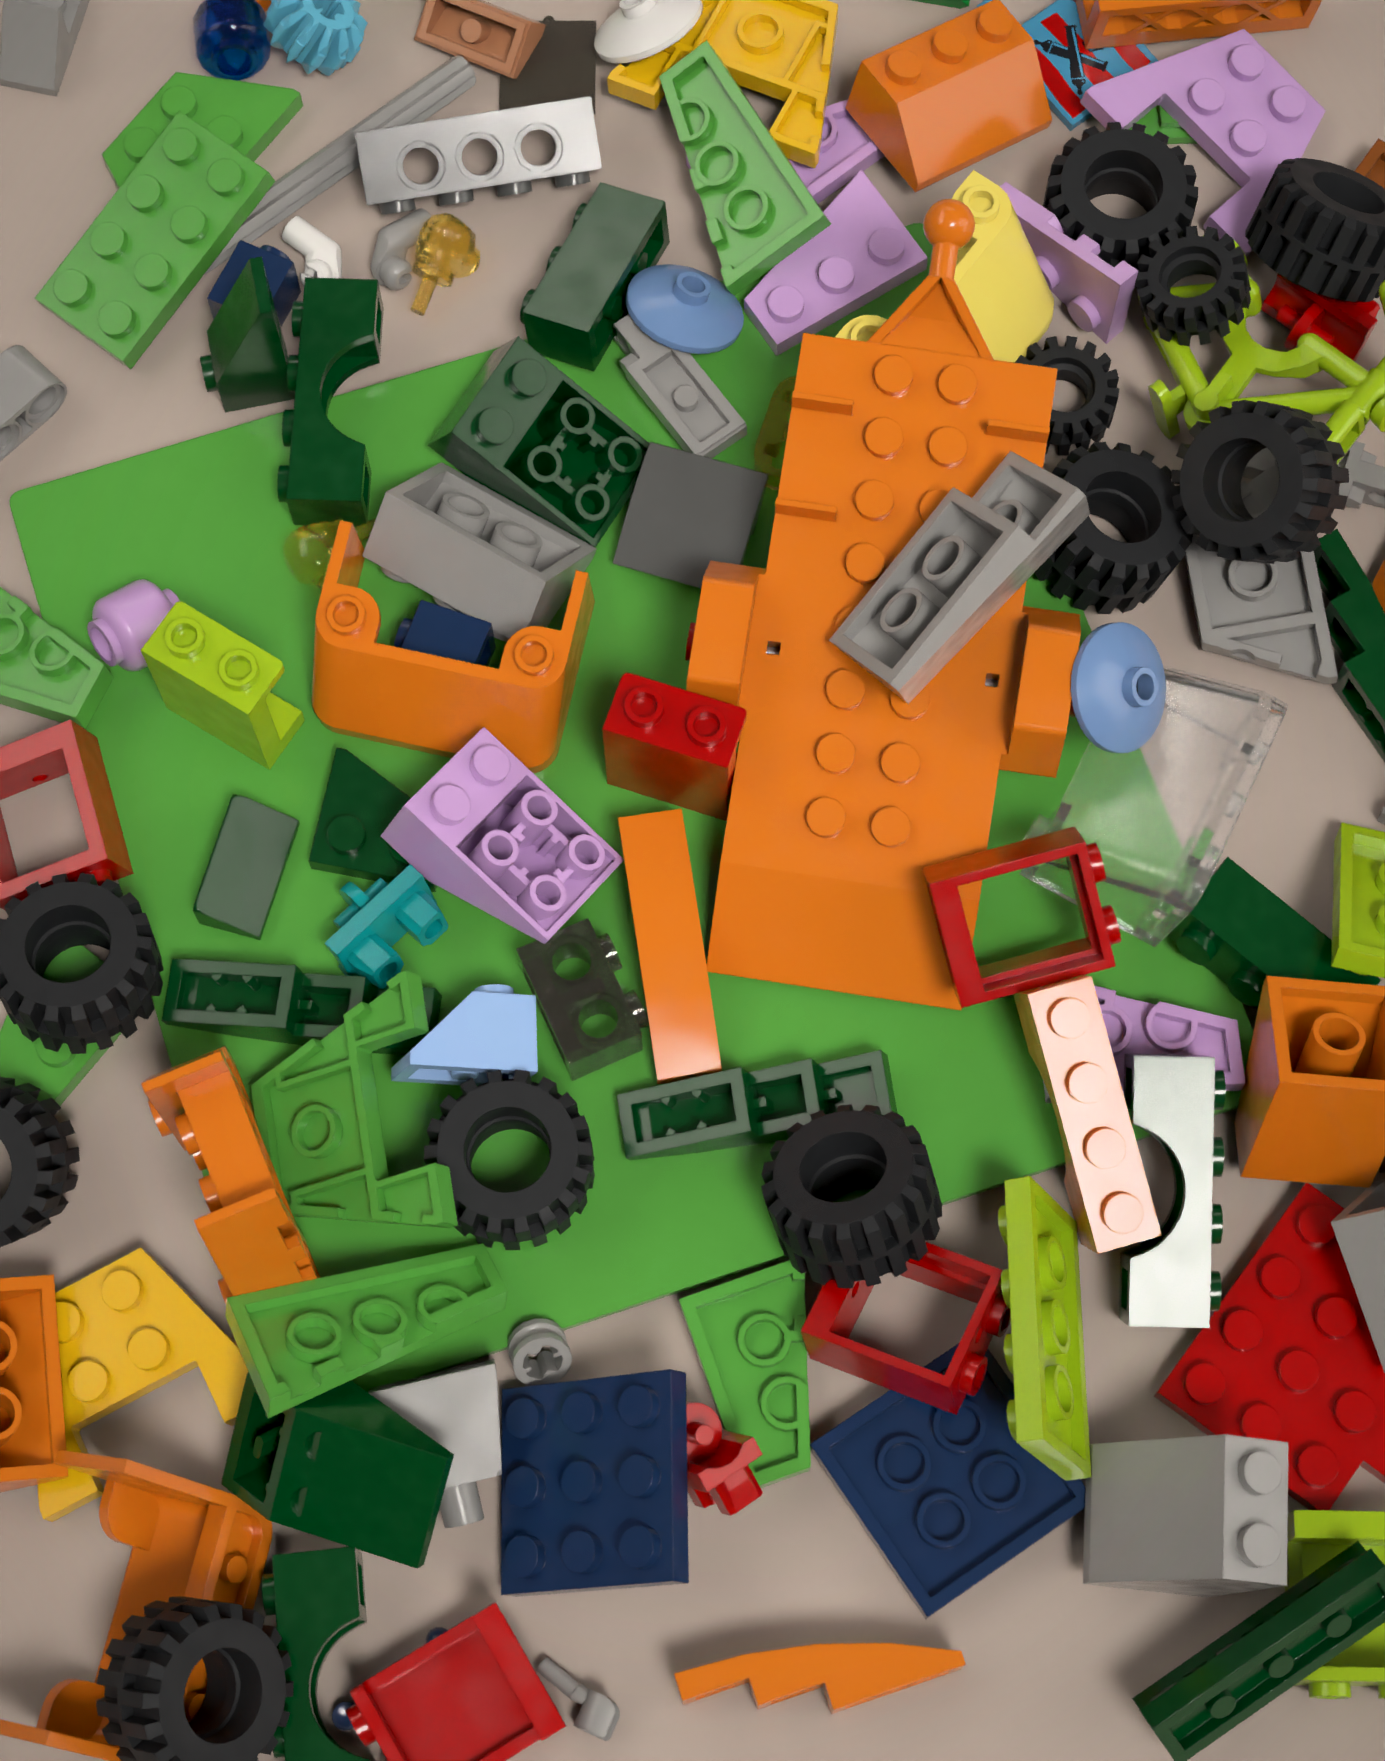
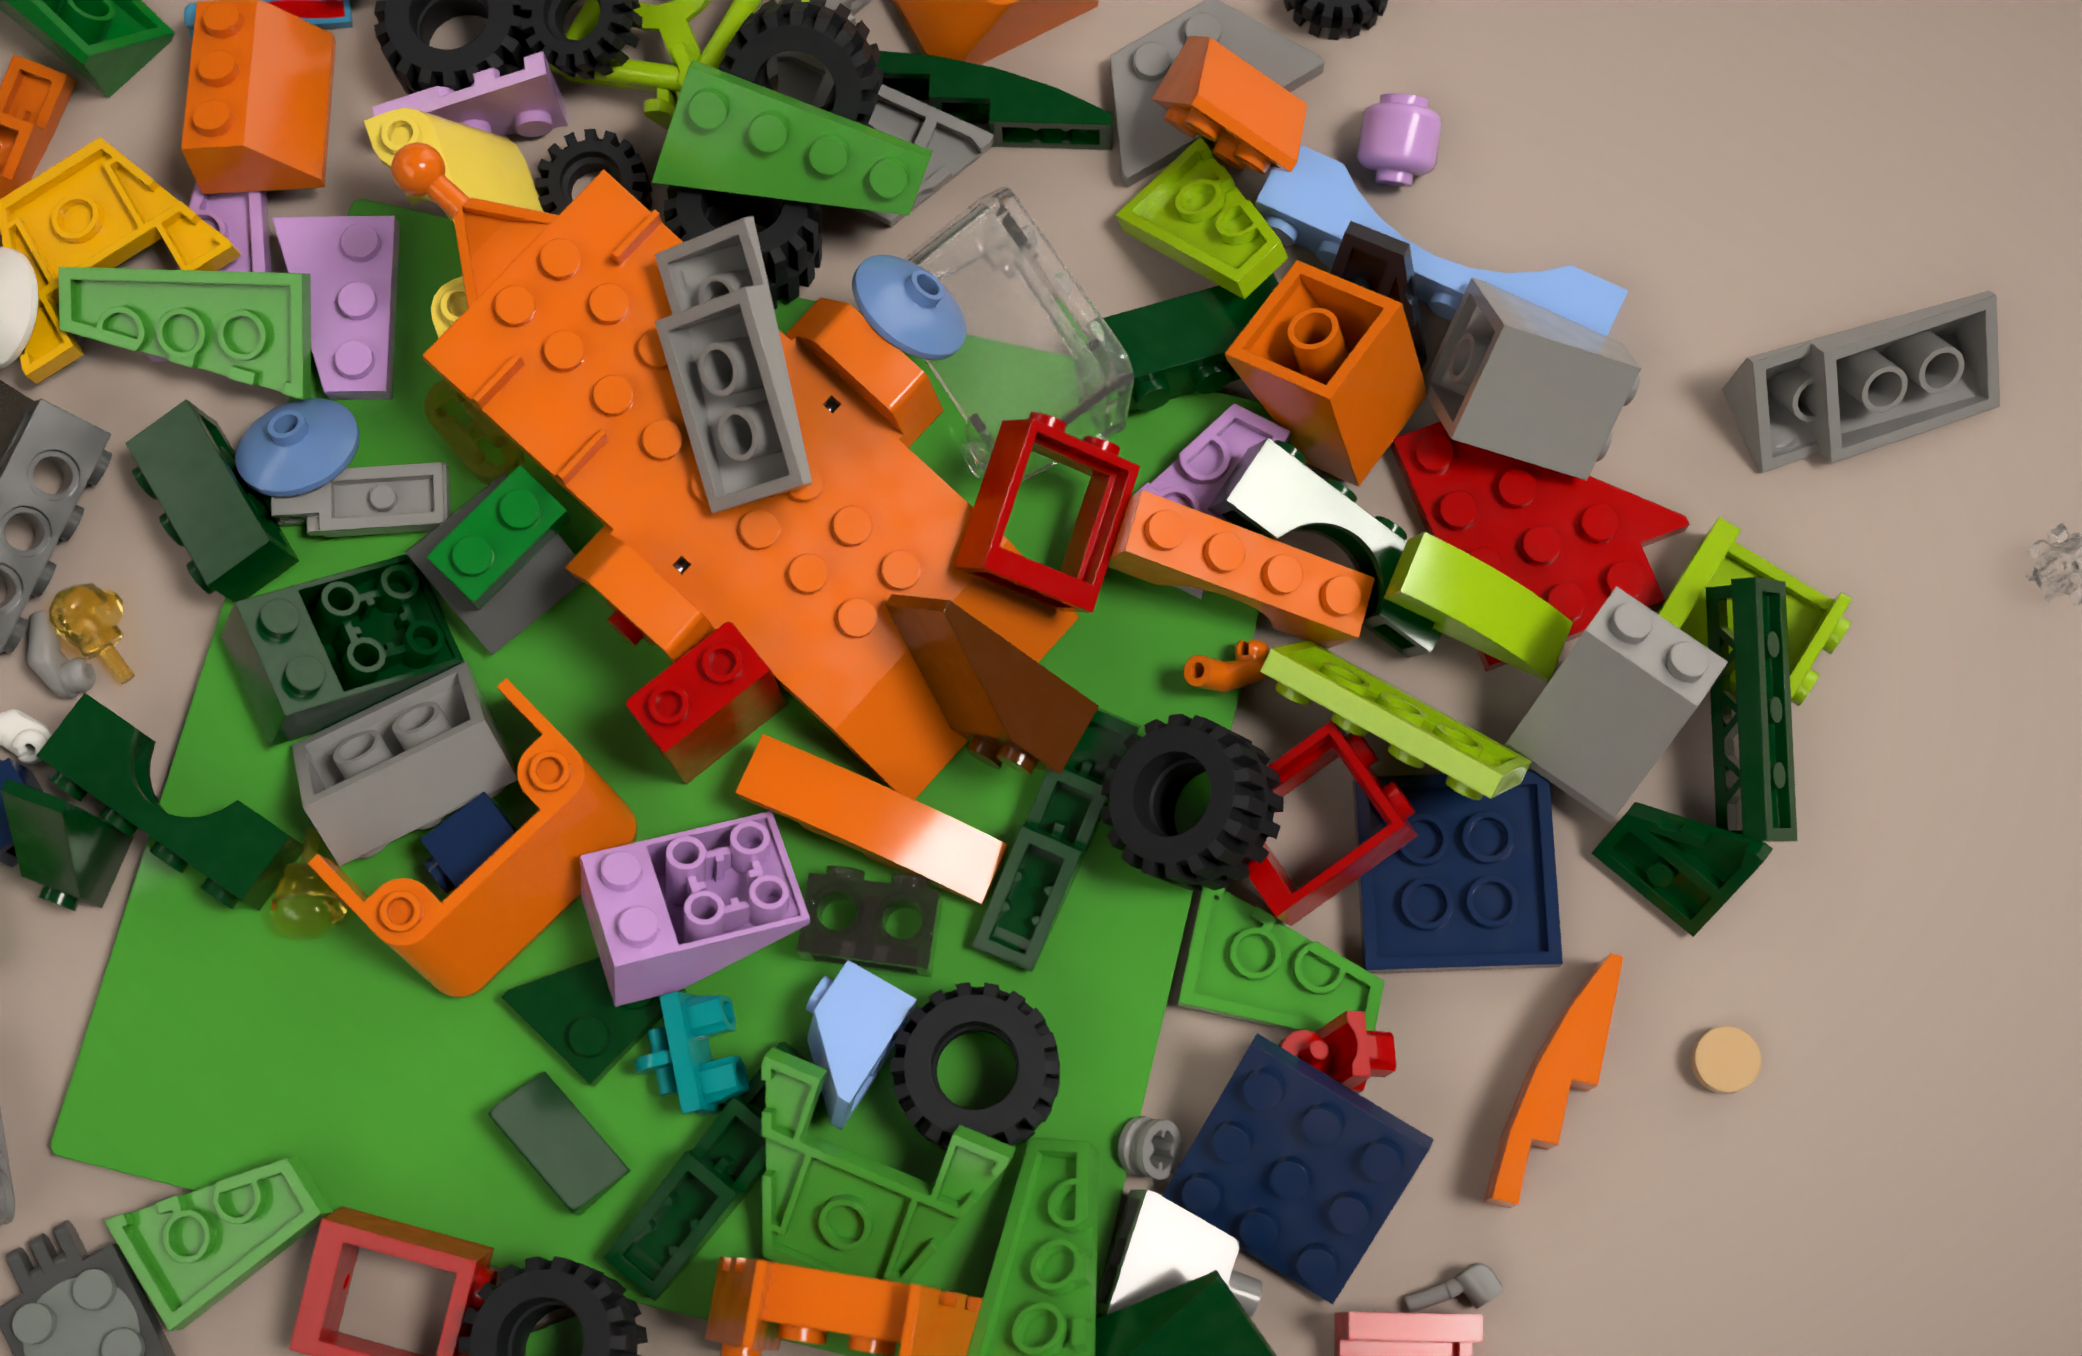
camera: 55 degrees left, 5 degrees up
(126, 622) = (265, 1107): lavender head -> none
(221, 684) = (382, 1061): lime panel -> none
(705, 499) = (499, 537): none -> green brick
(833, 971) = (991, 689): none -> reddish brown slope
(987, 1157) = (1228, 675): none -> orange arm
(1087, 1668) = (1680, 862): none -> dark green wing
(1186, 498) = (774, 146): none -> bright green wing
(1195, 1338) = (1478, 605): none -> lime slope

